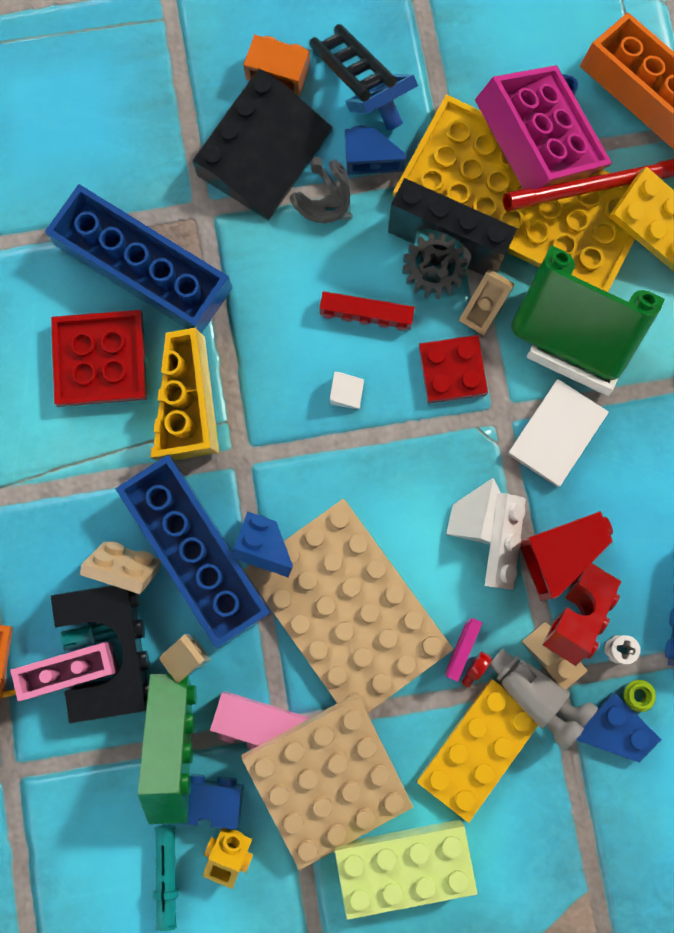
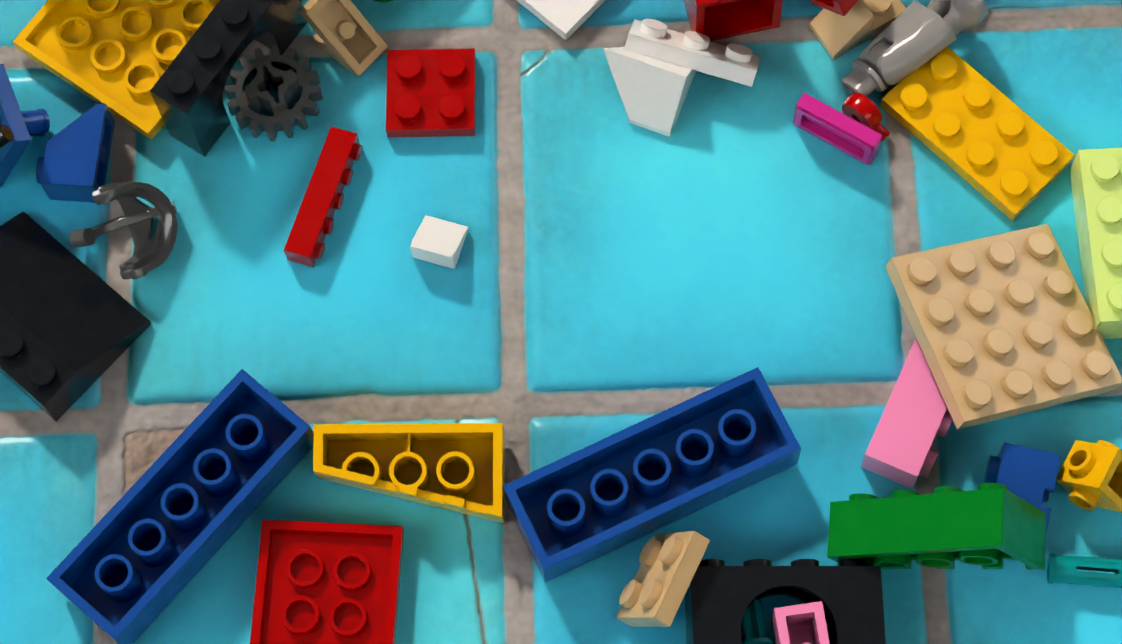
camera: 80 degrees left, 10 degrees down
(184, 657) = (808, 497): tan slope -> none
(262, 545) = (656, 374): blue wing -> none
(350, 610) = (759, 276): tan plate -> none

